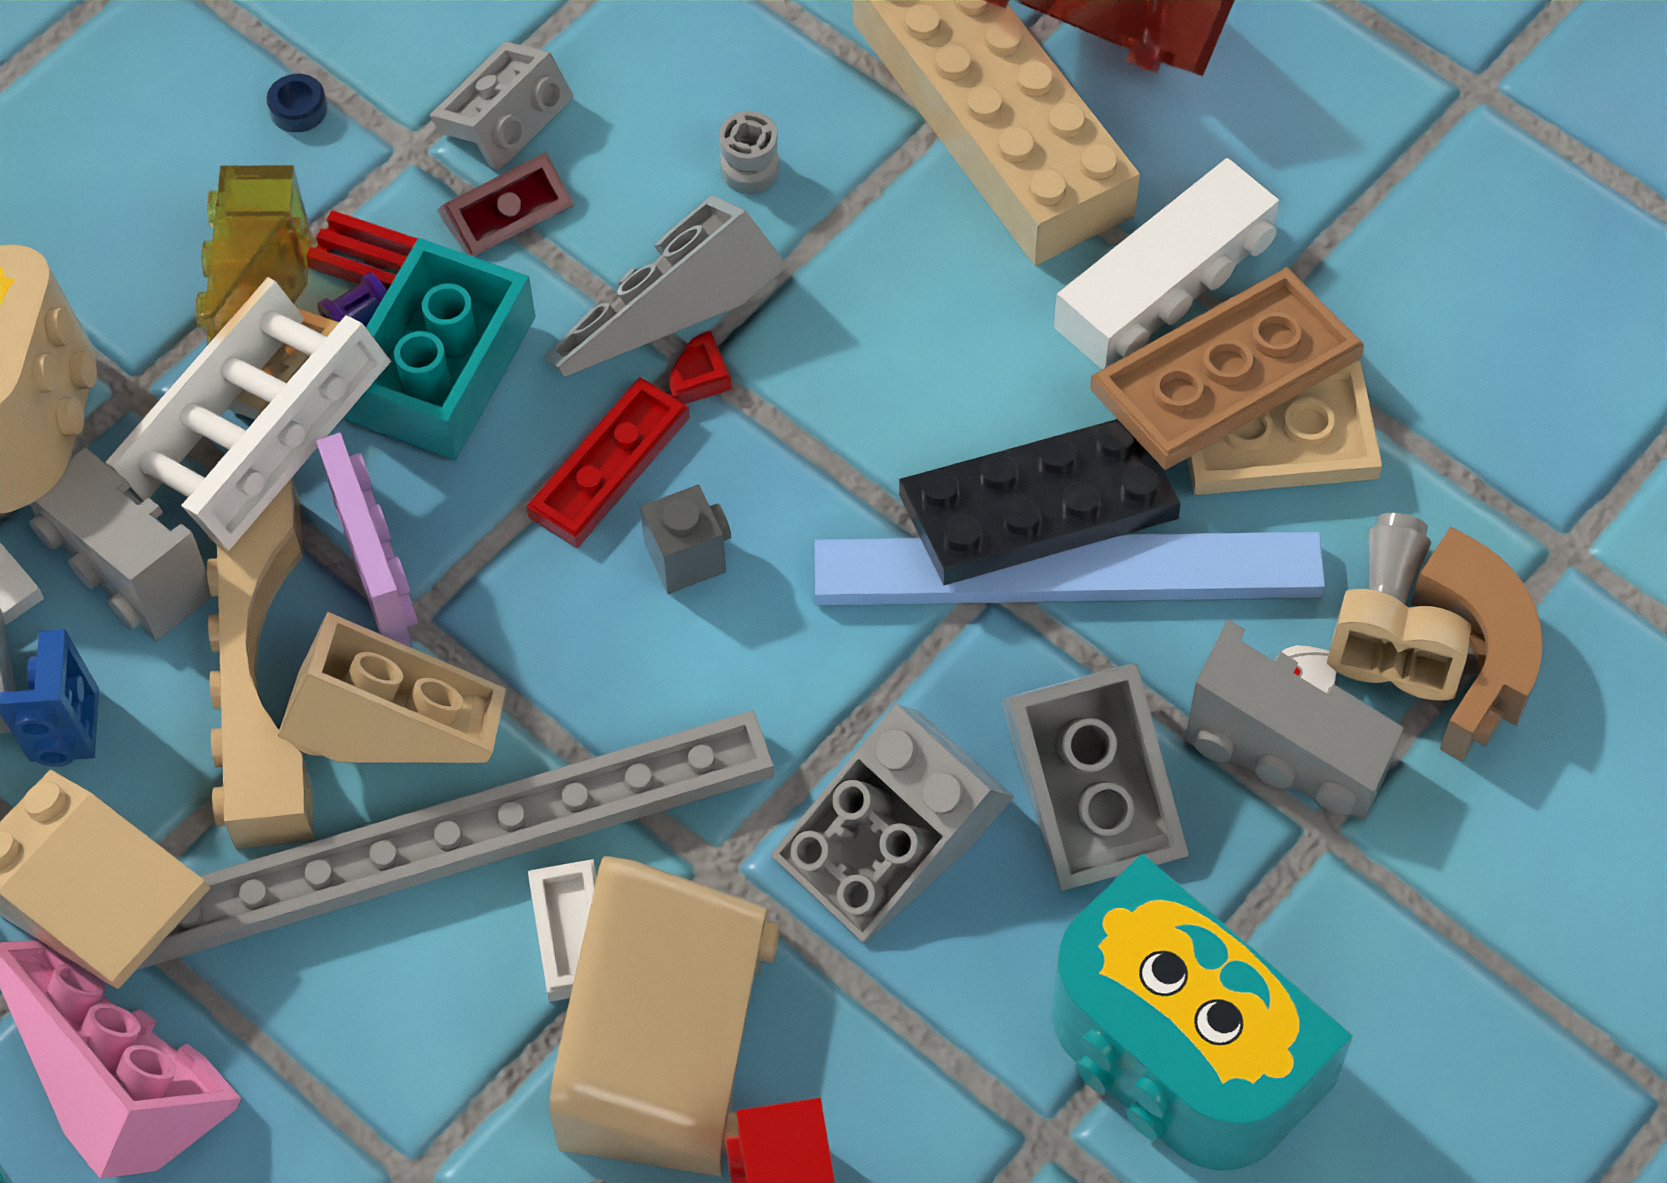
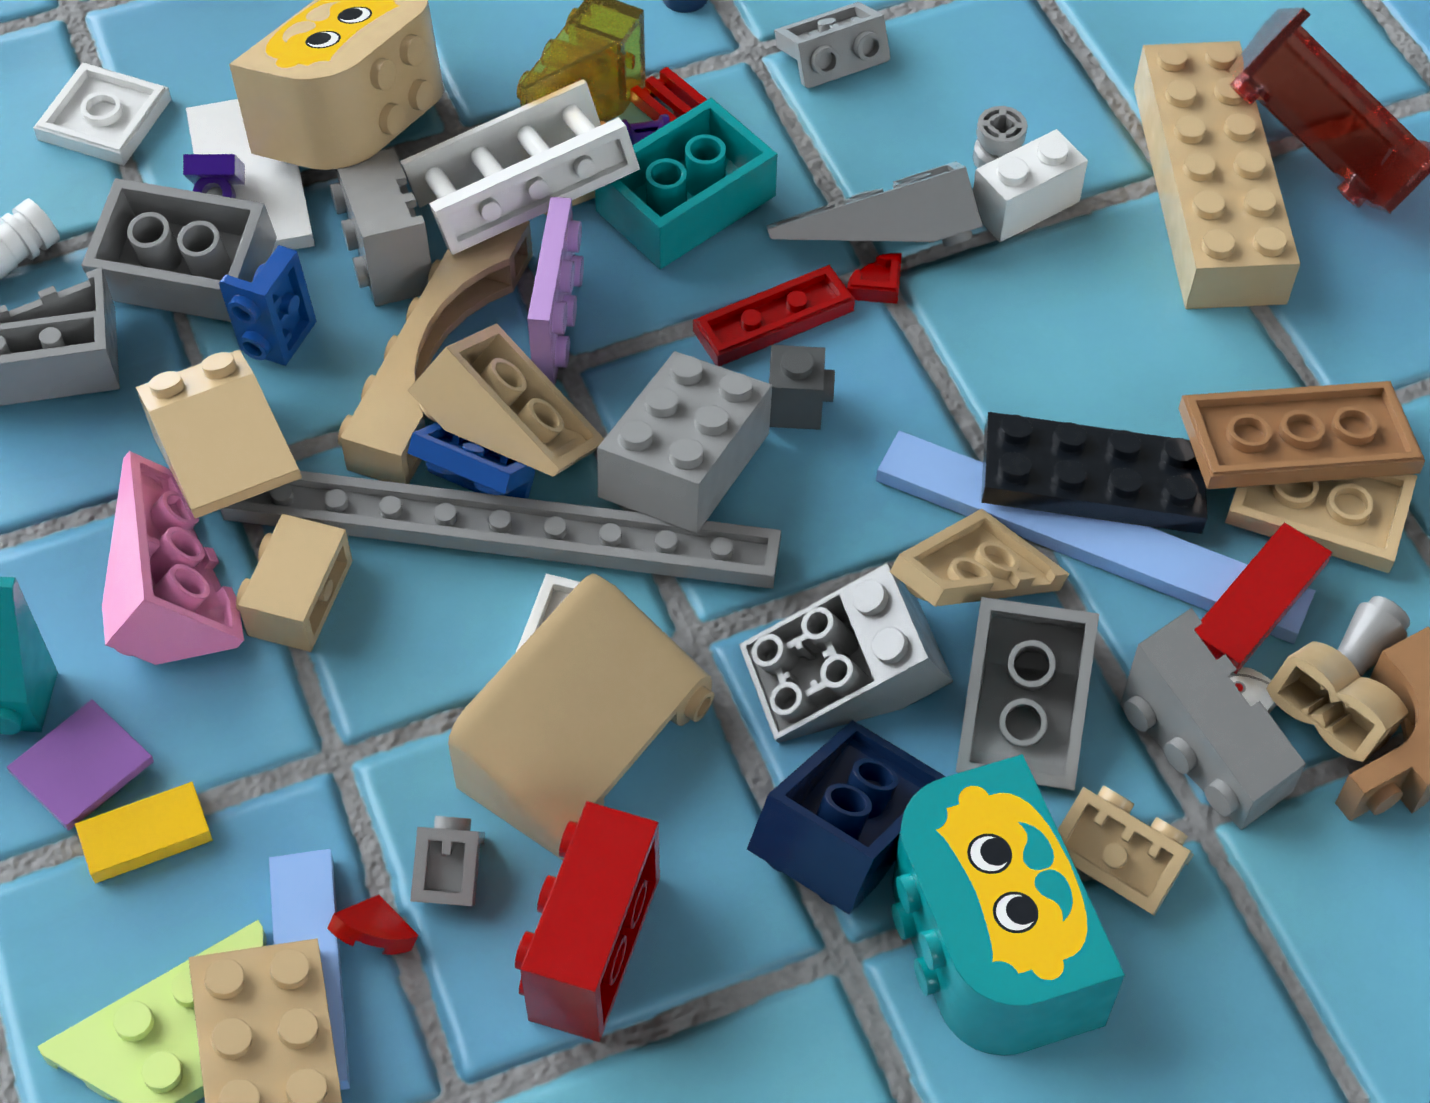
camera: 25 degrees right, 5 degrees down
(260, 1006) = (294, 582): none -> tan brick
(383, 786) = (470, 463): none -> blue bracket
(506, 205) = (797, 111): slope -> none
(602, 657) = (684, 441): none -> light grey brick
(809, 192) = (1029, 185): none -> white brick
(977, 659) = (976, 561): none -> tan wing
(983, 989) = (840, 815): none -> dark blue slope
(1167, 264) = (1293, 341): white brick -> none
(1270, 899) = (1122, 850): none -> tan bracket
(1273, 562) = (1262, 595): none -> red tile

